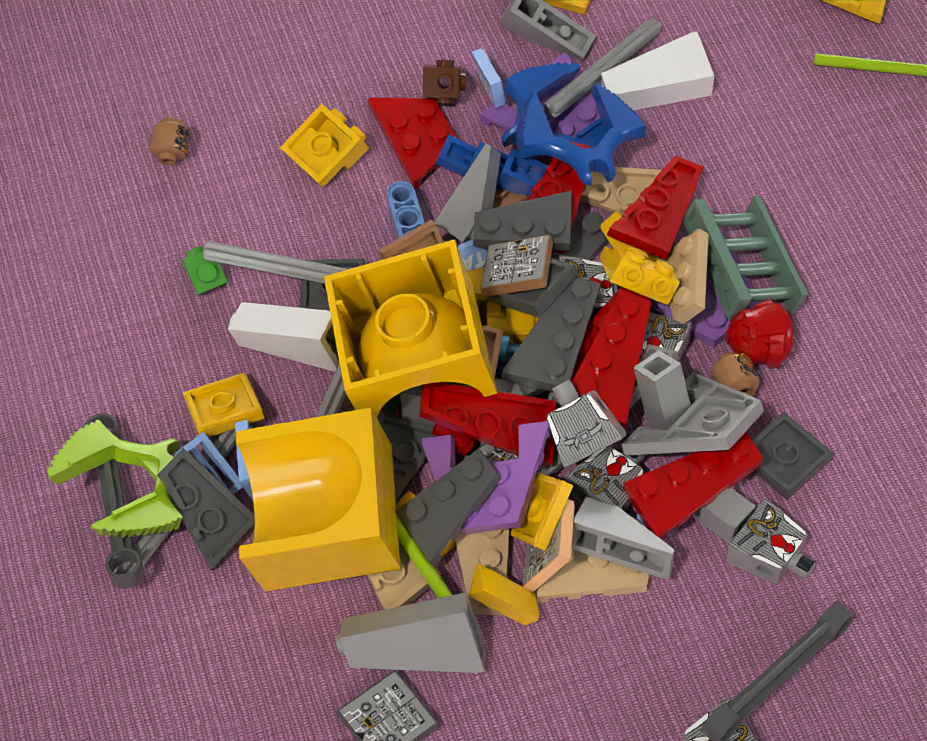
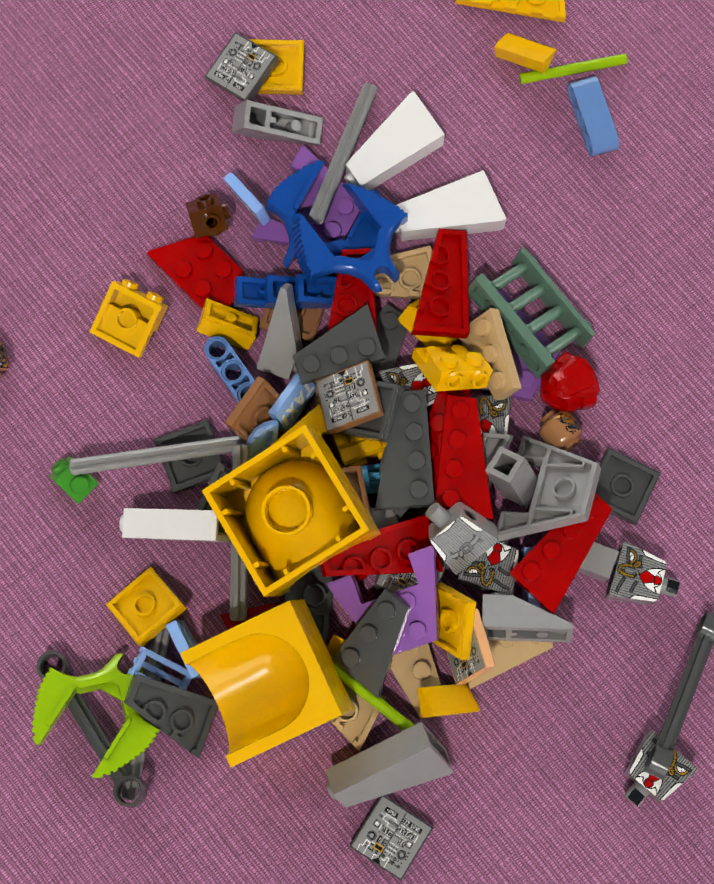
camera: 20 degrees left, 20 degrees up
(429, 185) = (229, 323): none -> yellow slope
(709, 142) = (461, 205): none -> white slope
(826, 36) = (524, 52): none -> yellow slope
(879, 108) = (593, 116): none -> medium blue beam

